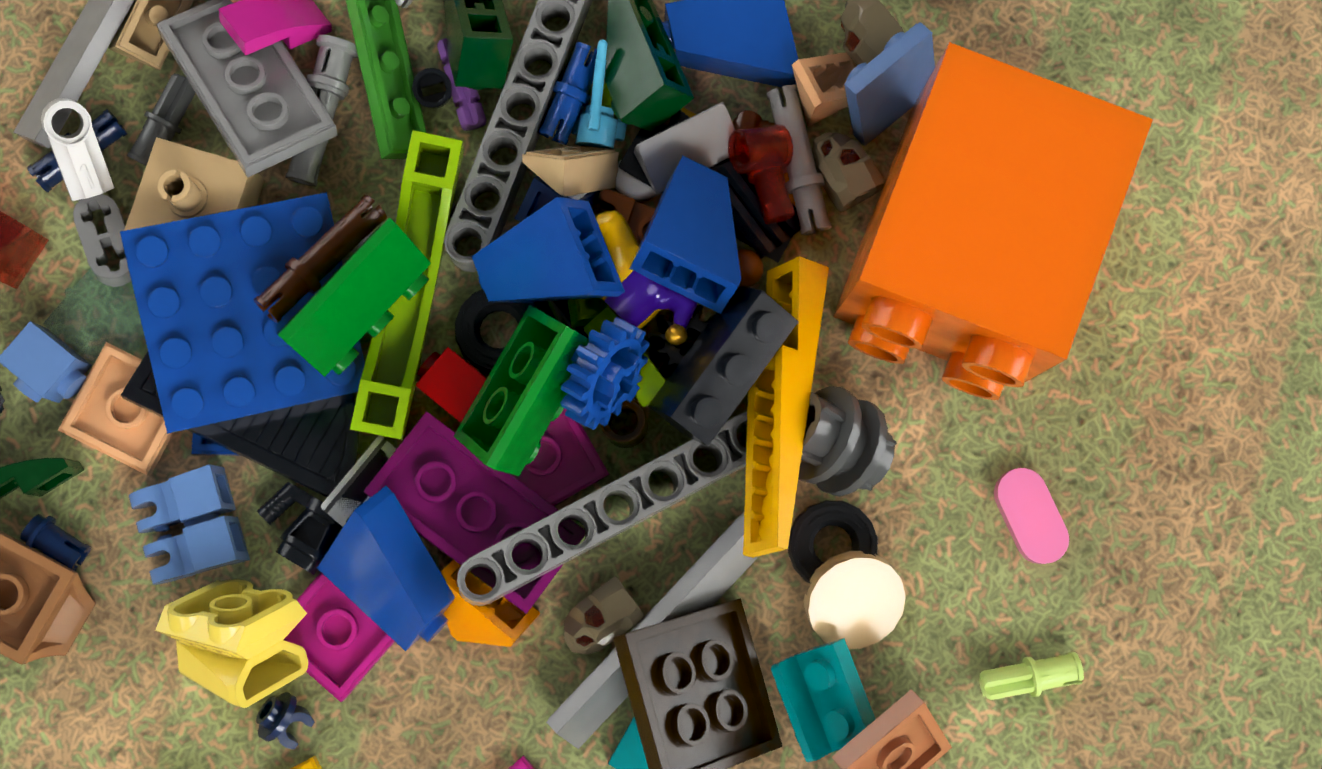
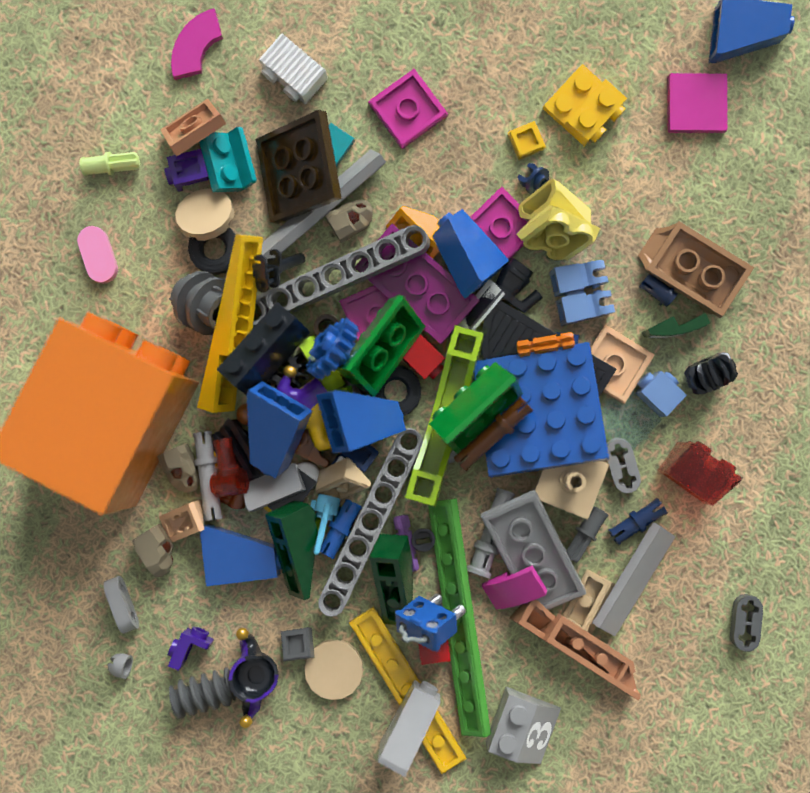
camera: 170 degrees left, 5 degrees up
(78, 153) = (636, 516): white piece -> none
(244, 425) = (545, 344): none -> orange axle
(726, 499) = (269, 274): none -> black piece
(889, 83) = (154, 510): medium blue tile -> none
(893, 674) = (186, 169): none -> dark purple bracket

